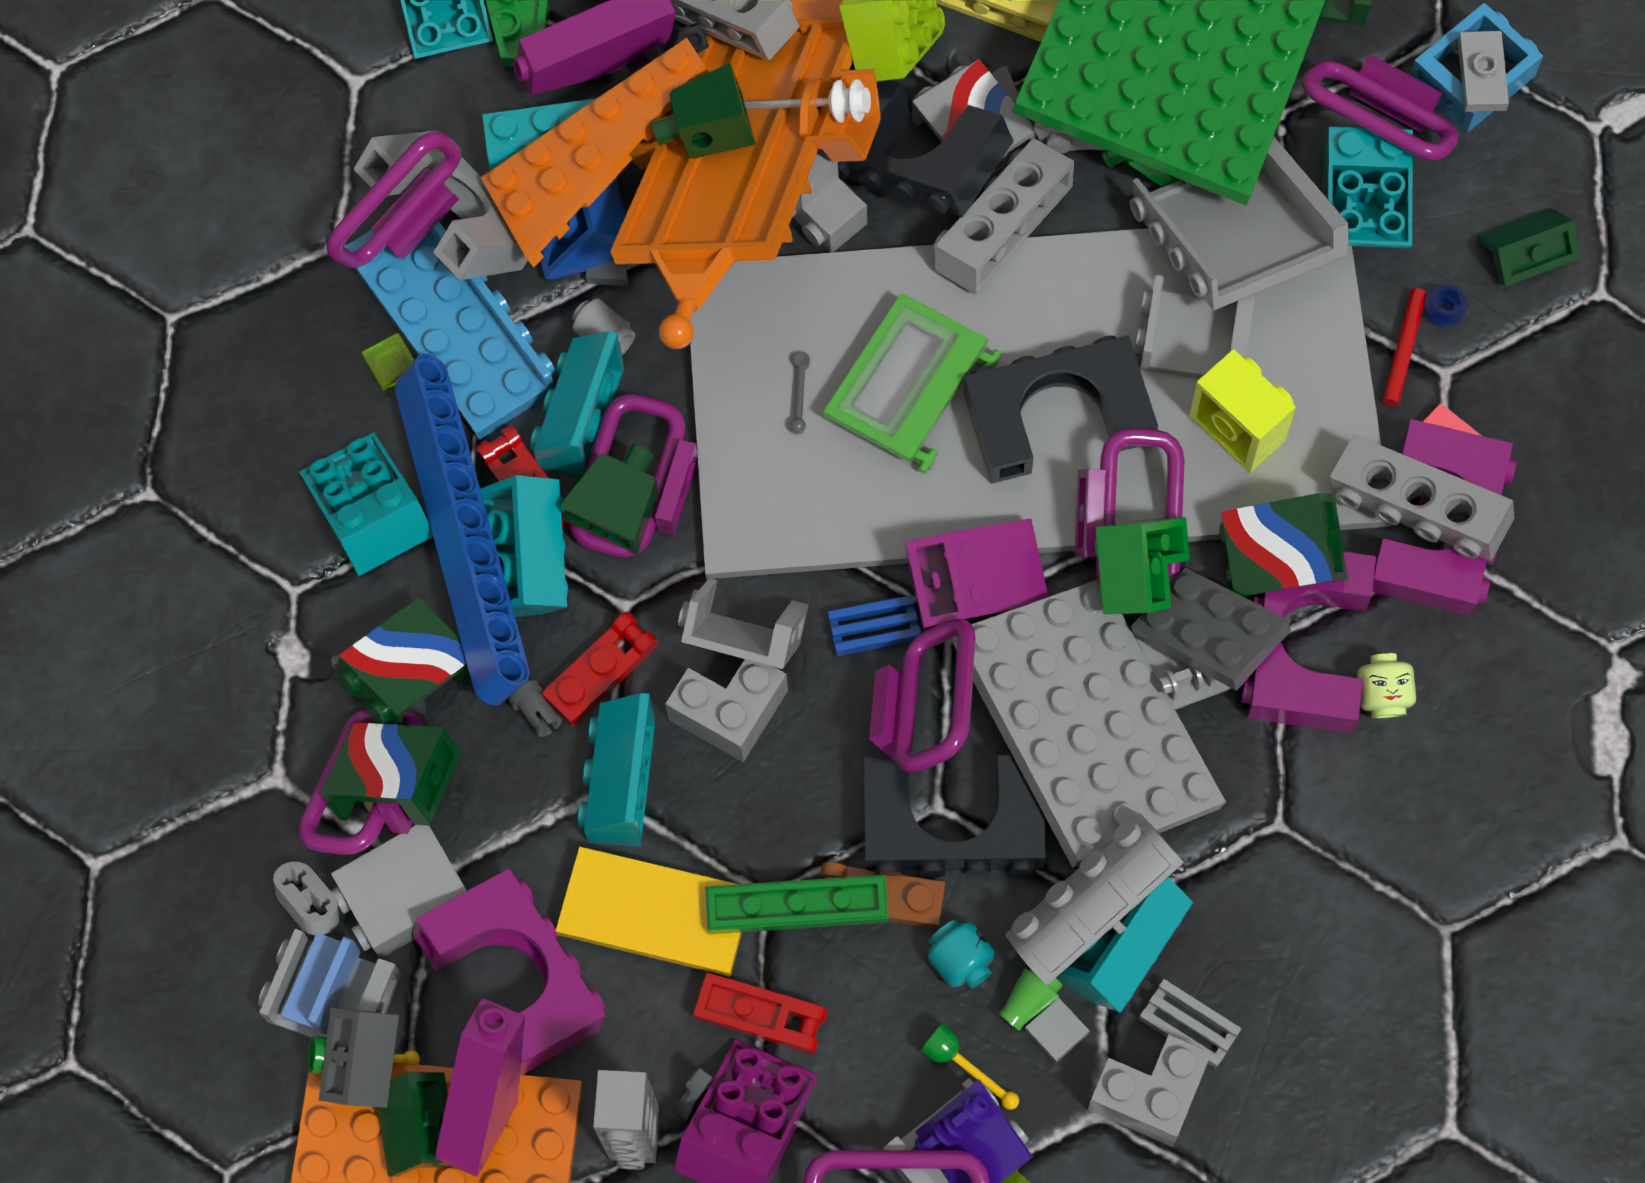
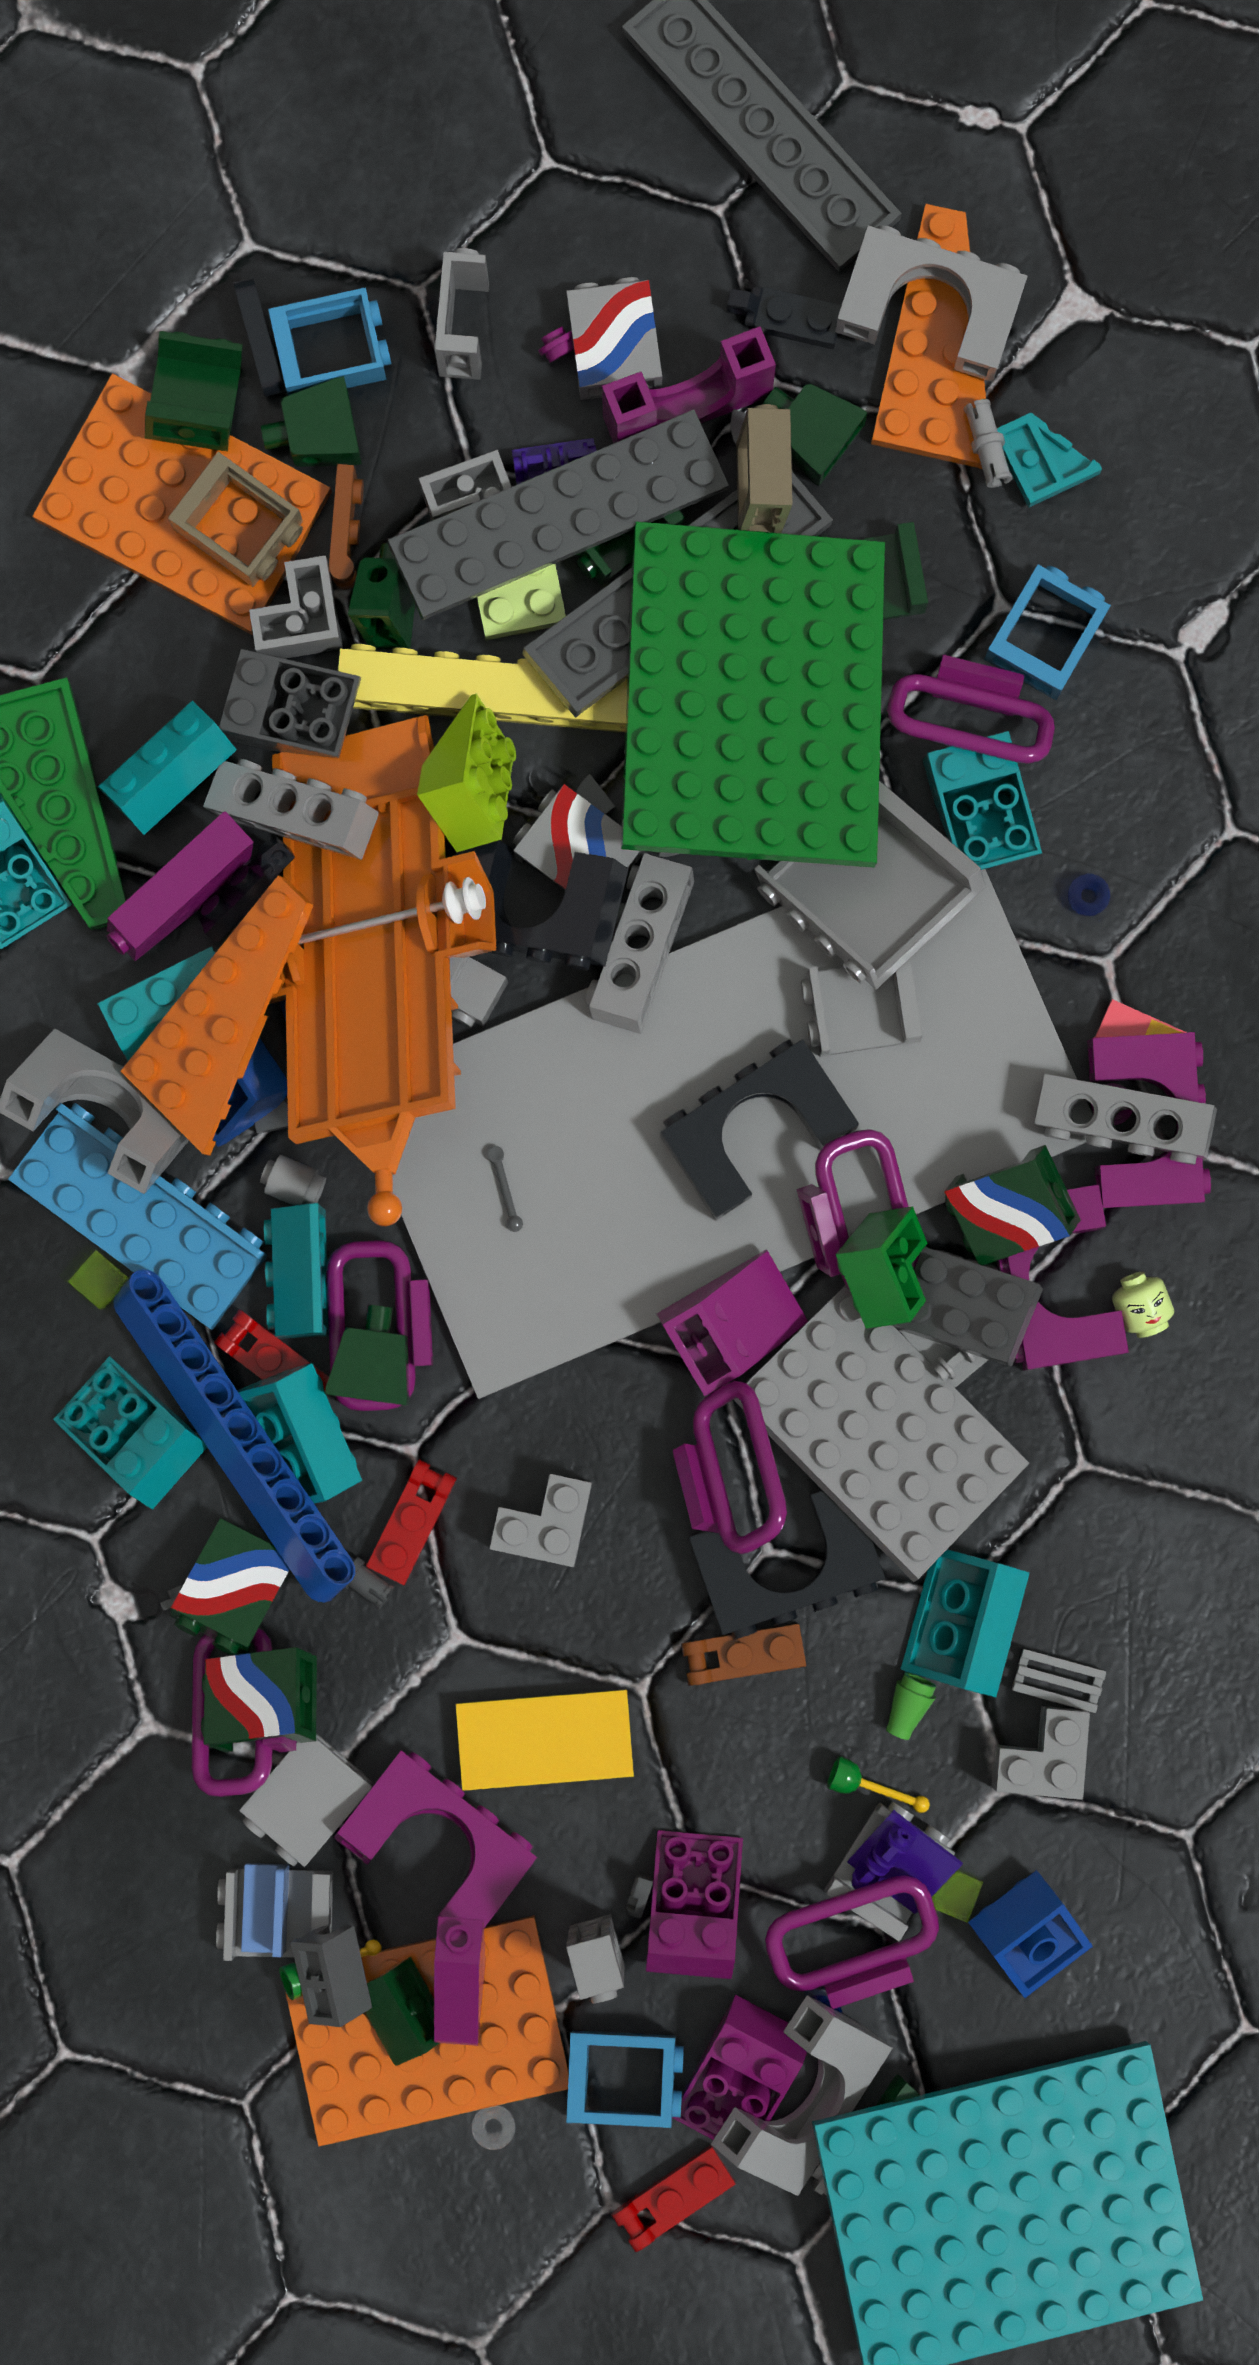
camera: 20 degrees left, 15 degrees up
(299, 903) = (228, 1827): light grey beam -> none
(411, 214) = (60, 1138): magenta bar -> none
(618, 771) = (466, 1624): teal slope -> none
(707, 115) = (330, 956): dark green torso -> none
(741, 638) = (534, 1456): light grey panel -> none
(759, 1013) = (671, 1802): red plate -> none
(796, 904) = (673, 1694): green tile -> none
(871, 610) = (683, 1377): blue tile -> none
(907, 379) = (604, 1145): piece -> none
(960, 954) = (835, 1688): teal head -> none
(1057, 1030) = (942, 1727): light grey tile -> none
(1093, 898) = (944, 1611): light grey container -> none
(1242, 410) = (934, 1081): neon yellow brick -> none
(1404, 347) = (1061, 950): red bar -> none
(1483, 71) = (1058, 644): light grey plate -> none
(1531, 245) = (1151, 805): dark green panel -> none

